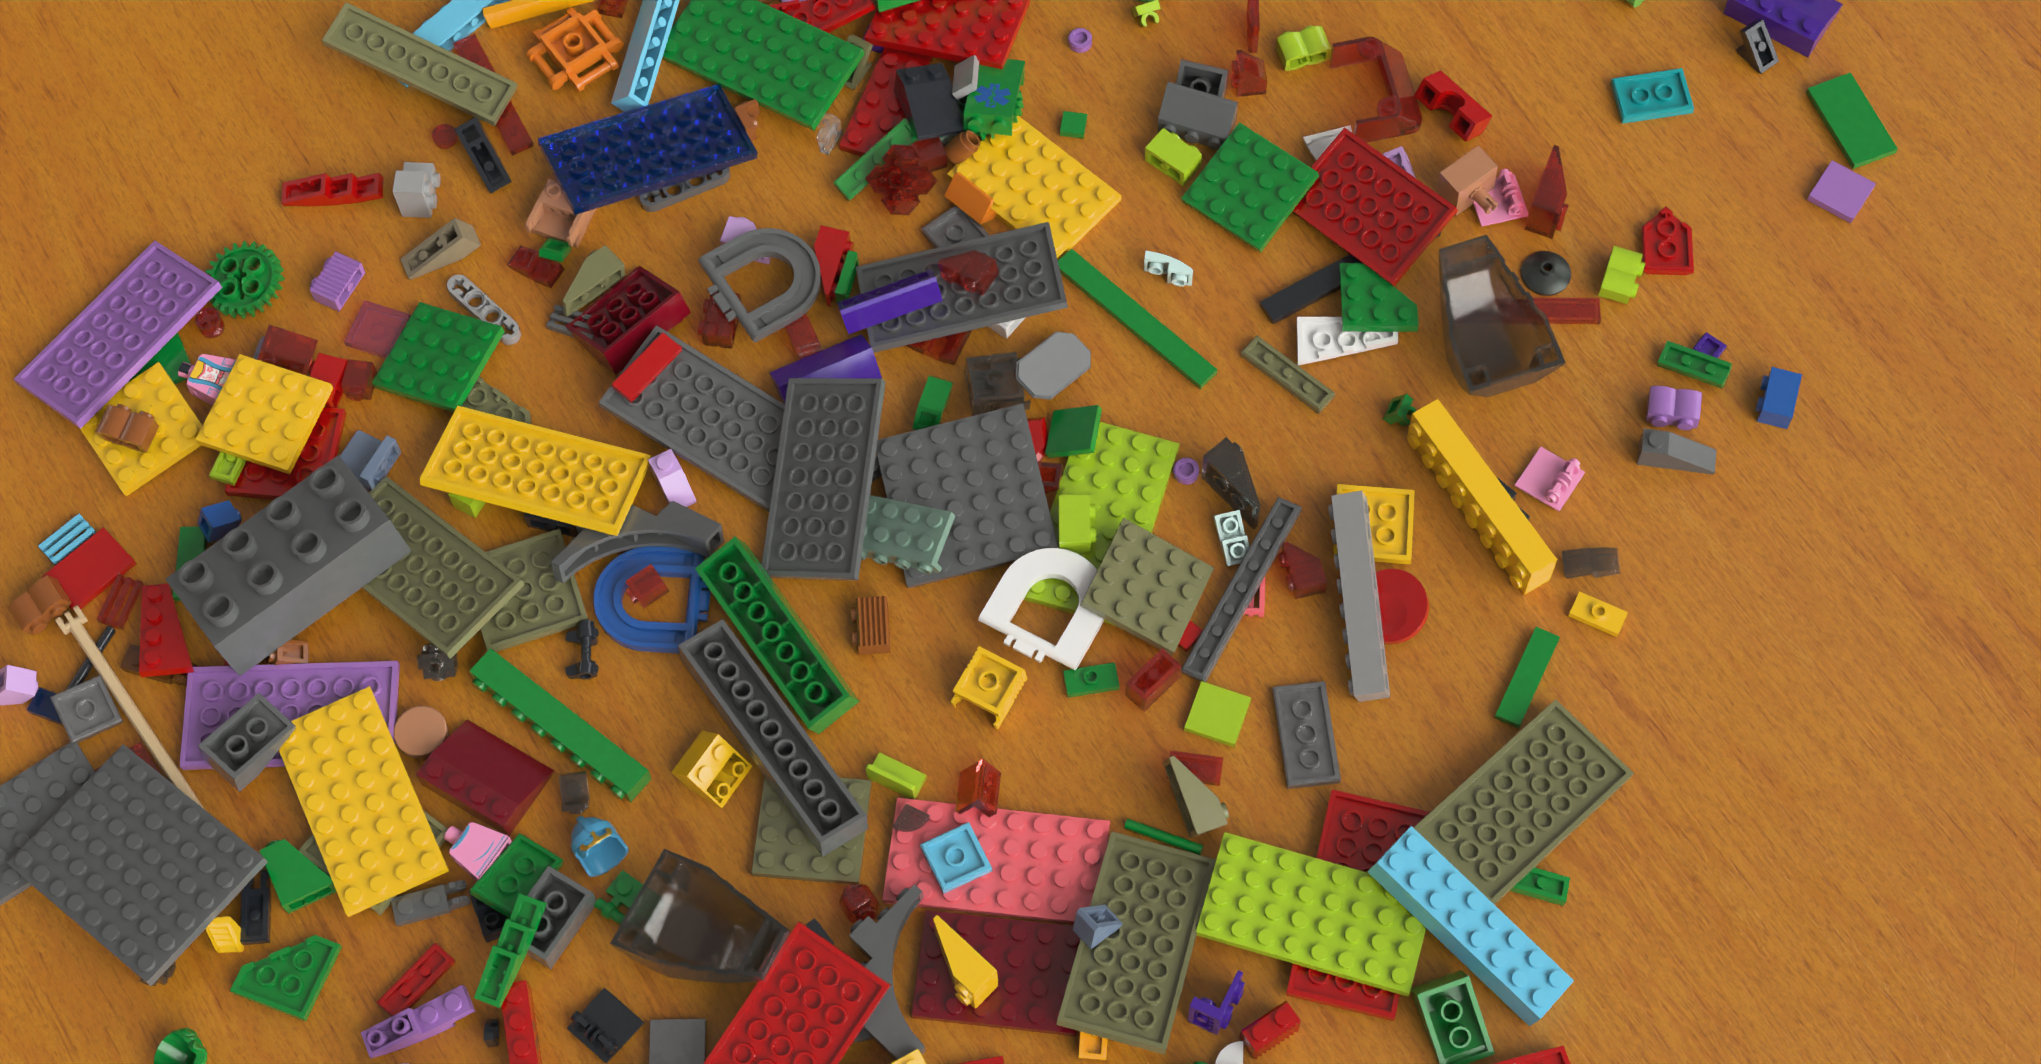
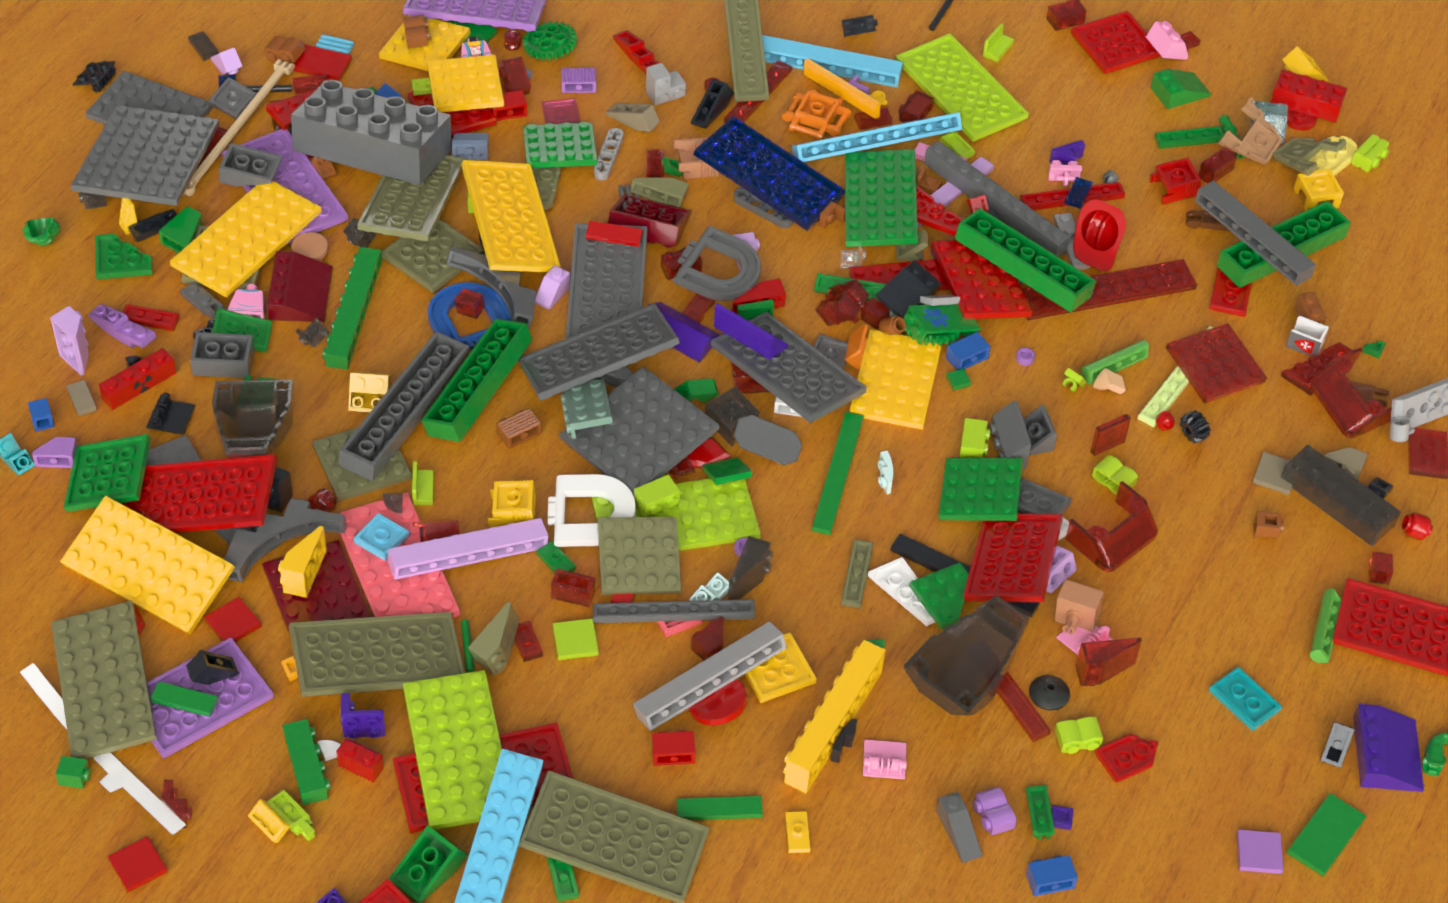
camera: 55 degrees right, 15 degrees down
(358, 380) = (519, 117): clear red brick -> none
(510, 950) = (180, 340): green slope -> none
(586, 636) = (420, 295): black piece -> none
(597, 845) = (282, 356): dark azure helmet -> none
(969, 269) = (798, 360): clear red slope -> none
(1032, 768) = (467, 548): none -> lavender brick
(1043, 93) = (968, 351): none -> blue brick
(1095, 924) = (371, 618): sand blue slope -> none
(1248, 75) = (1067, 451): clear red slope -> none
(1302, 136) = (1041, 500): none -> dark grey tile
(1306, 735) = (591, 696): flat silver tile -> none
(1428, 683) = (673, 748): none -> red brick
(1440, 92) = (1134, 588): red arch -> none
(1588, 561) = (835, 809): clear smoke slope -> none

